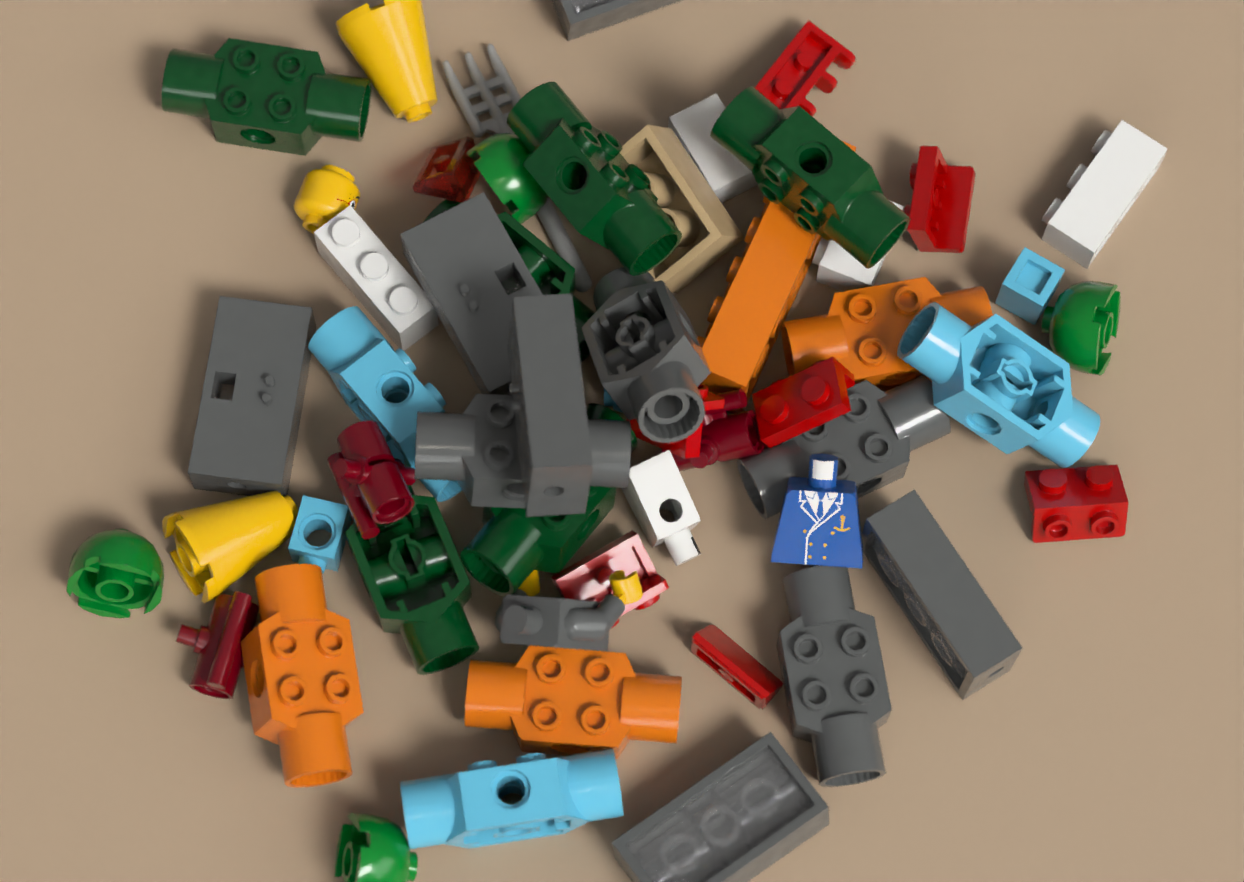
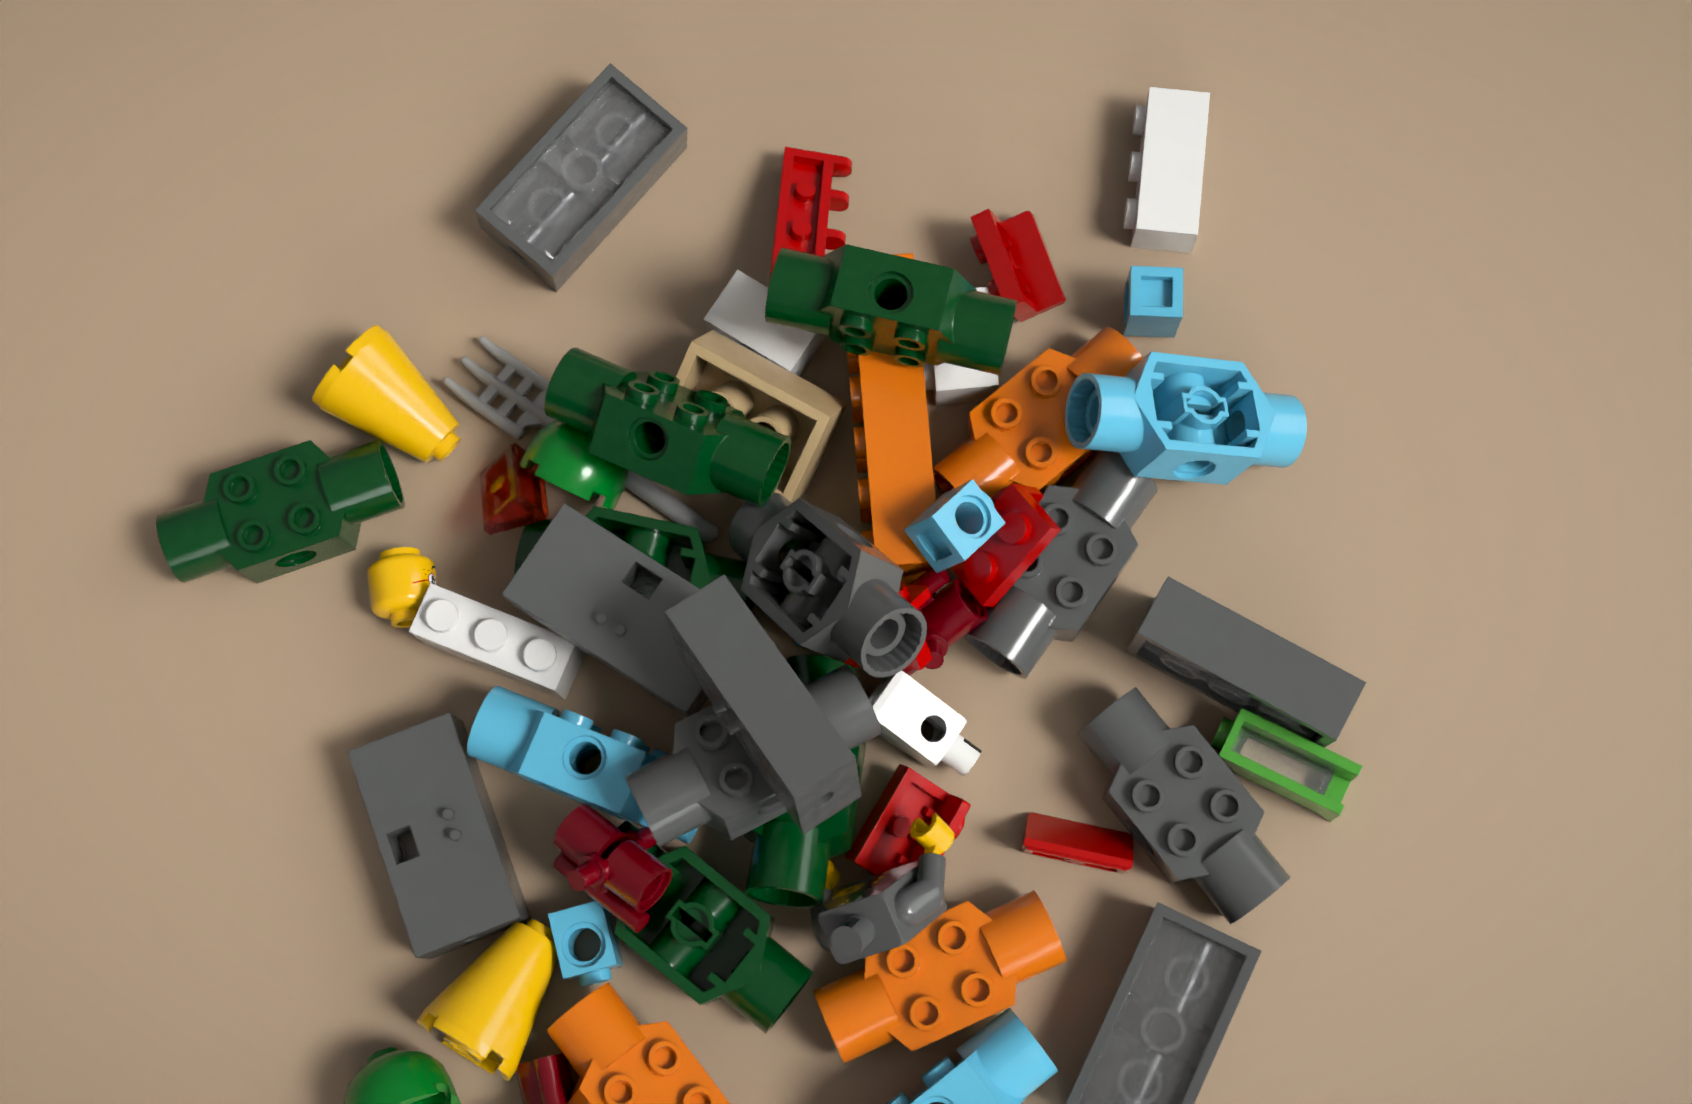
camera: 20 degrees left, 5 degrees up
(754, 368) = (938, 533): none -> medium azure brick
(819, 519) = (1085, 656): blue torso -> none
(933, 689) = (1285, 763): none -> bright green window
(1076, 503) = (1316, 494): red bracket -> none
(1083, 325) = (1224, 313): green cylinder -> none

